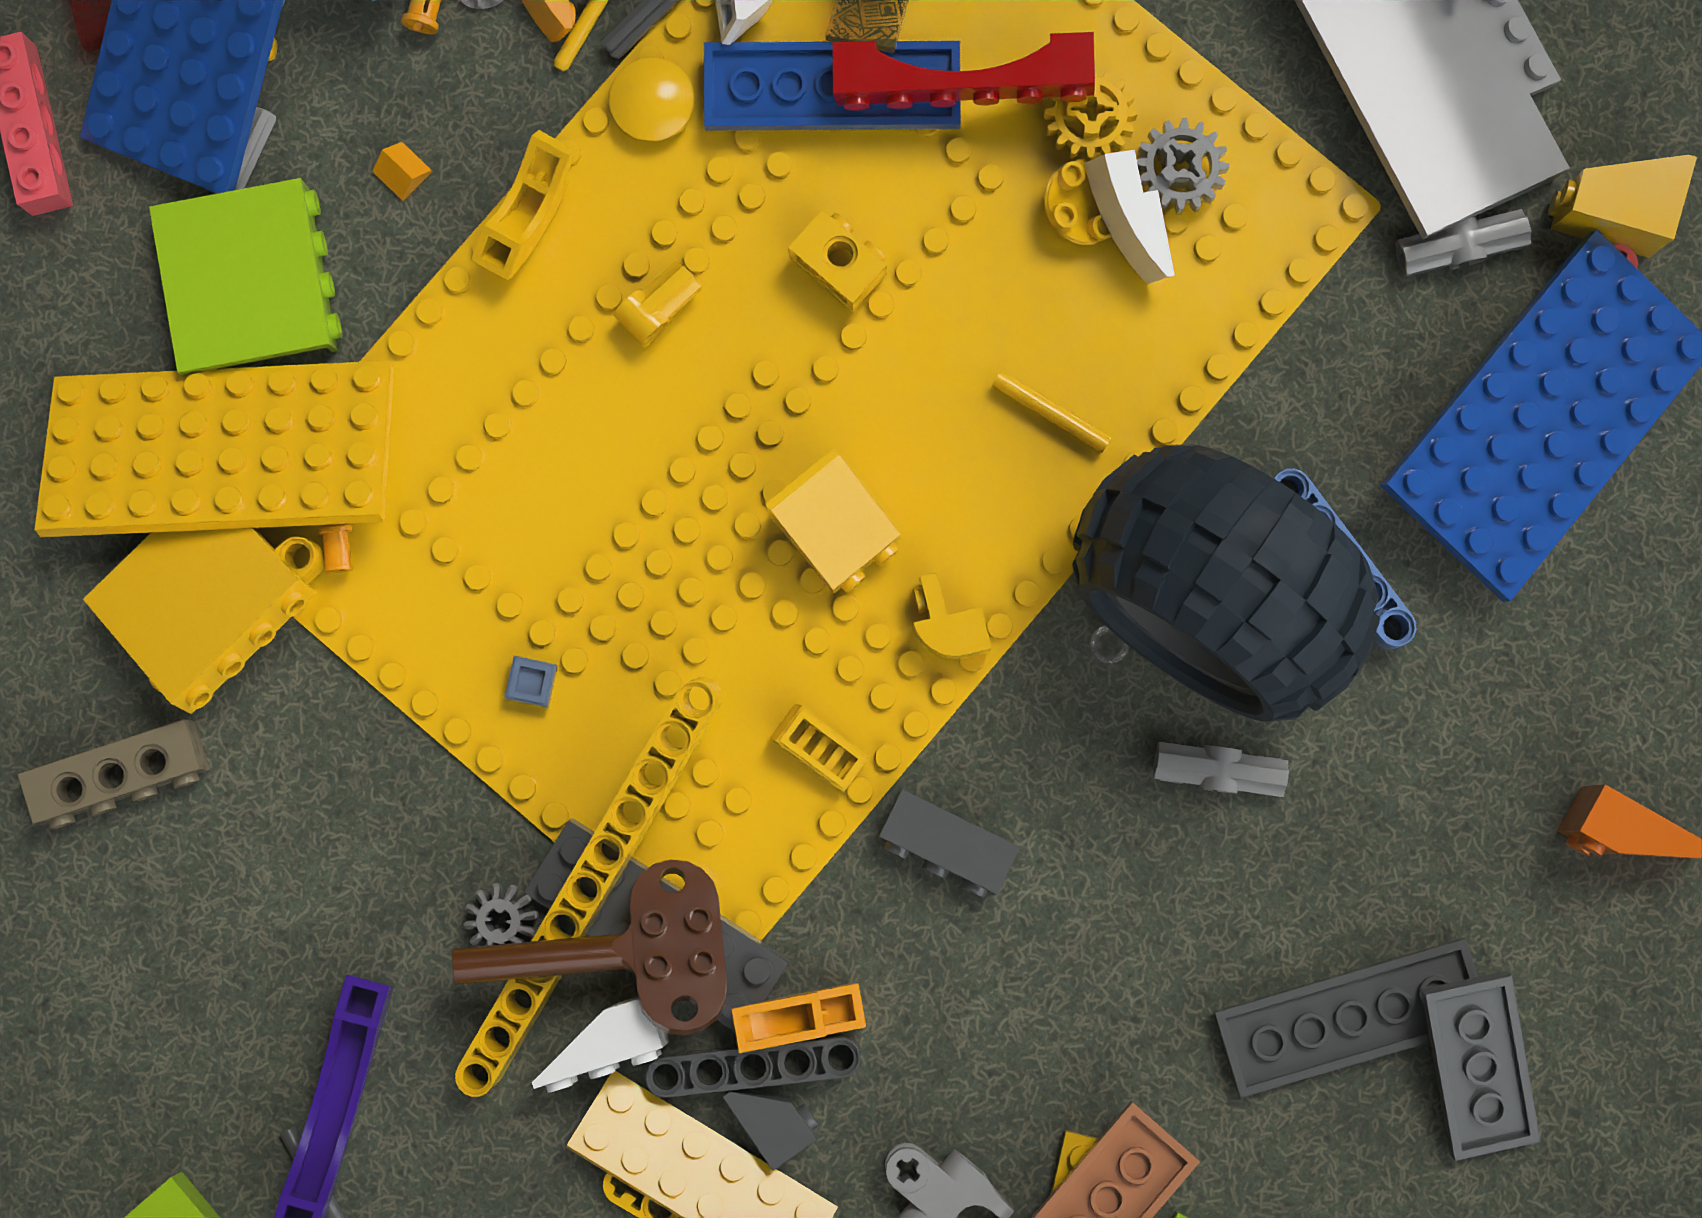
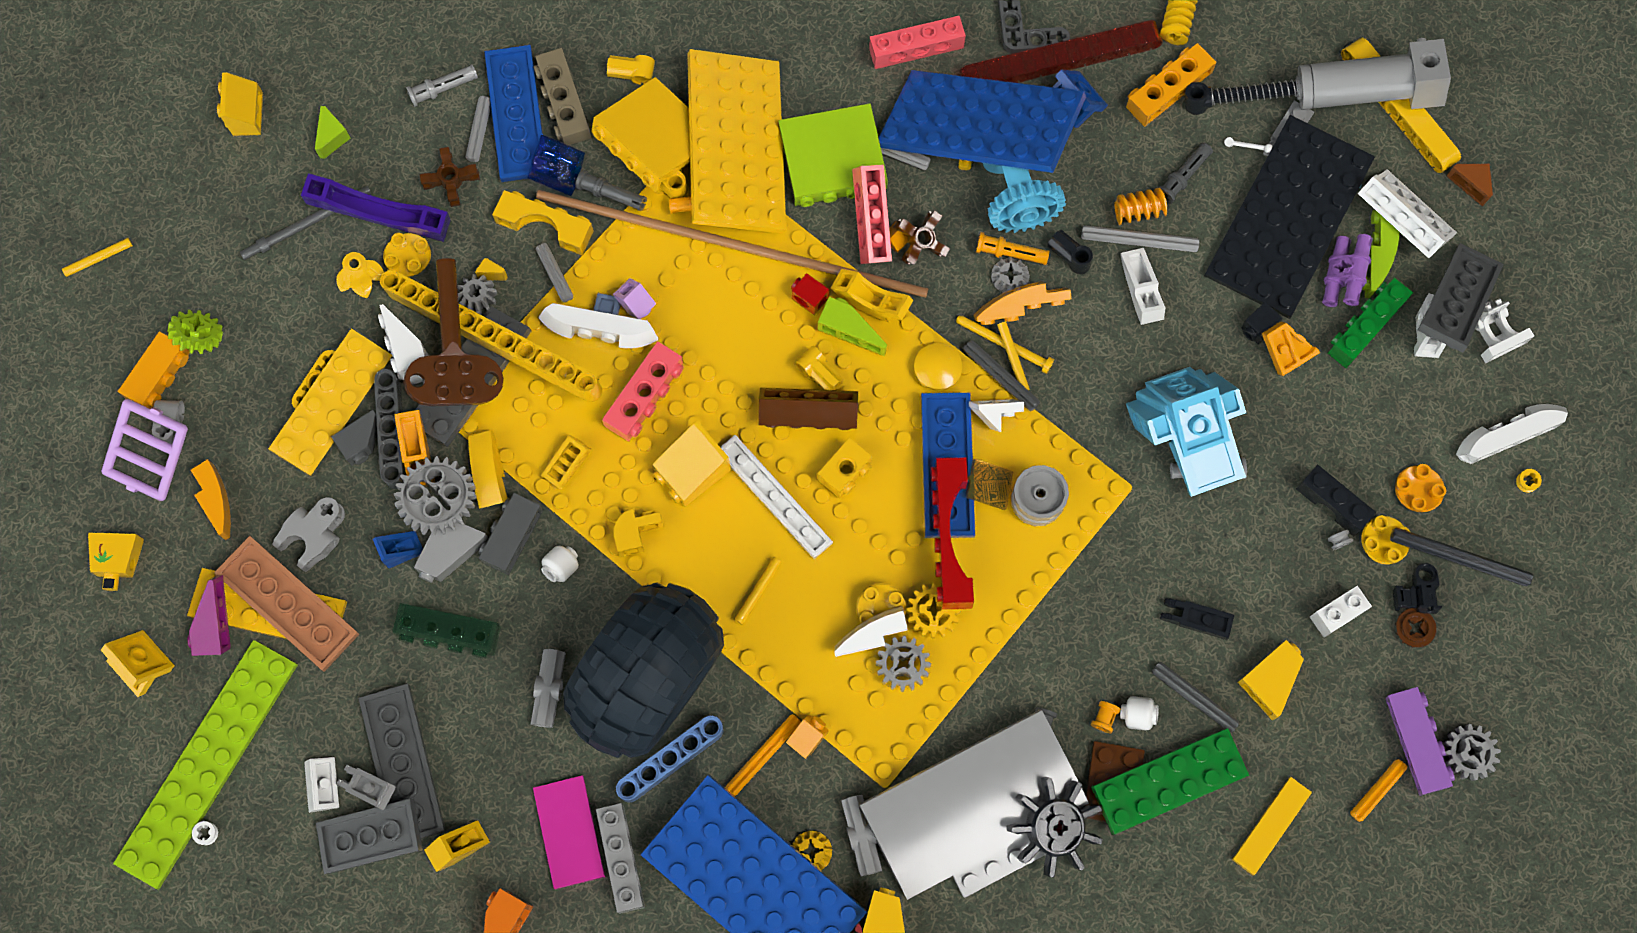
camera: 85 degrees right, 10 degrees down
(58, 953) = (428, 86): none -> light grey pin
(61, 637) = (636, 69): none -> yellow piece
(142, 860) = (514, 109): none -> blue plate
(171, 929) = (478, 129): none -> light grey axle
(252, 780) = (556, 165): none -> clear blue slope
(263, 949) = (467, 173): none -> reddish brown pin
(298, 696) = (601, 187): none -> dark grey pin
(340, 852) = (516, 211): none -> yellow arch
(369, 203) = (872, 214): none -> coral brick
(409, 472) = (726, 242): none -> medium nougat piece
(414, 107) = (912, 232): none -> reddish brown pin
(418, 1052) = (407, 254): none -> yellow dish
(456, 894) = (491, 271): none -> yellow slope
(461, 779) = (554, 272): none -> light grey axle
(462, 1136) = (358, 278): none -> yellow plate
(514, 318) = (809, 293): none -> red brick
(527, 621) = (634, 299): none -> lavender brick
(558, 751) = (588, 324): none -> white brick
(574, 250) = (847, 324): none -> lime slope
(632, 580) = (658, 358): none -> coral brick
(734, 322) = (808, 408): none -> reddish brown brick
(833, 888) = (486, 469): none -> yellow slope
(886, 381) = (776, 498): none -> white tile
(915, 1002) = (417, 511): none -> light grey gear
(972, 1039) = (398, 548): none -> blue slope
(974, 953) = (447, 552): none -> light grey slope
(1002, 754) = (560, 563): none -> white head
(1120, 949) = (447, 630): none -> clear green brick
(1302, 327) = (808, 736): none -> light orange brick
(1329, 405) = (763, 755): none -> light orange axle
(1385, 1156) = (321, 784): none -> white slope
(1400, 1072) = (367, 787): none -> light grey hinge
(1461, 729) = (568, 832): none -> dark pink tile
(1471, 312) = (820, 841): none -> yellow gear
(1490, 916) = (456, 845): none -> yellow slope
(1509, 638) = (620, 858): none -> light grey brick

